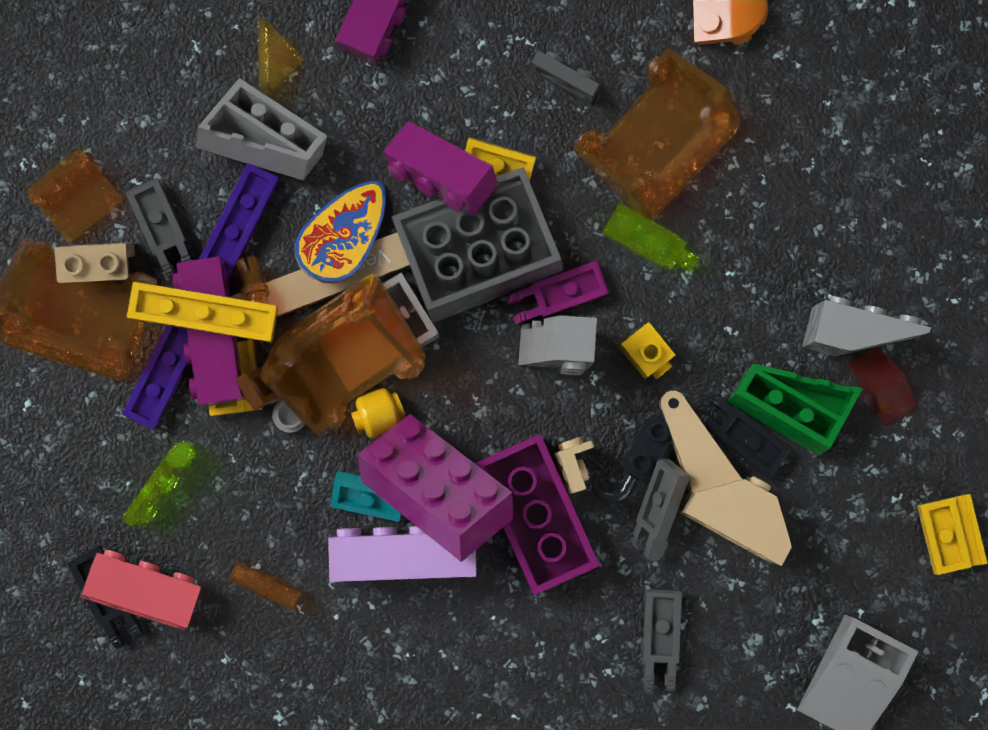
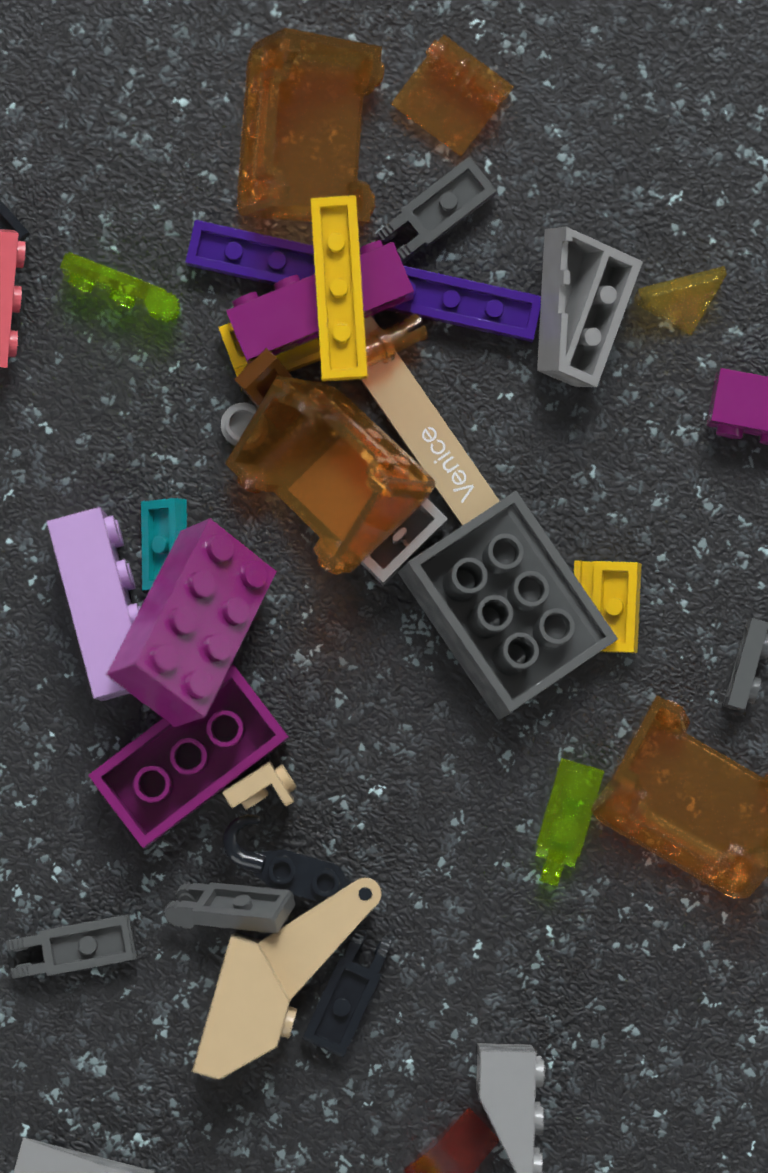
camera: 75 degrees right, 0 degrees up
(93, 262) = (374, 139): tan bracket -> none
(264, 585) = (26, 444): clear orange pin -> none
(341, 234) = (480, 434): shield -> none
(377, 412) = (269, 531): yellow head -> none
(440, 169) = (589, 536): magenta brick -> none
(559, 343) = (405, 733): light grey wedge -> none
(561, 292) = (474, 724): magenta hinge -> none
(648, 352) = (423, 849): yellow brick -> none
(795, 405) = (399, 1048): green wedge -> none

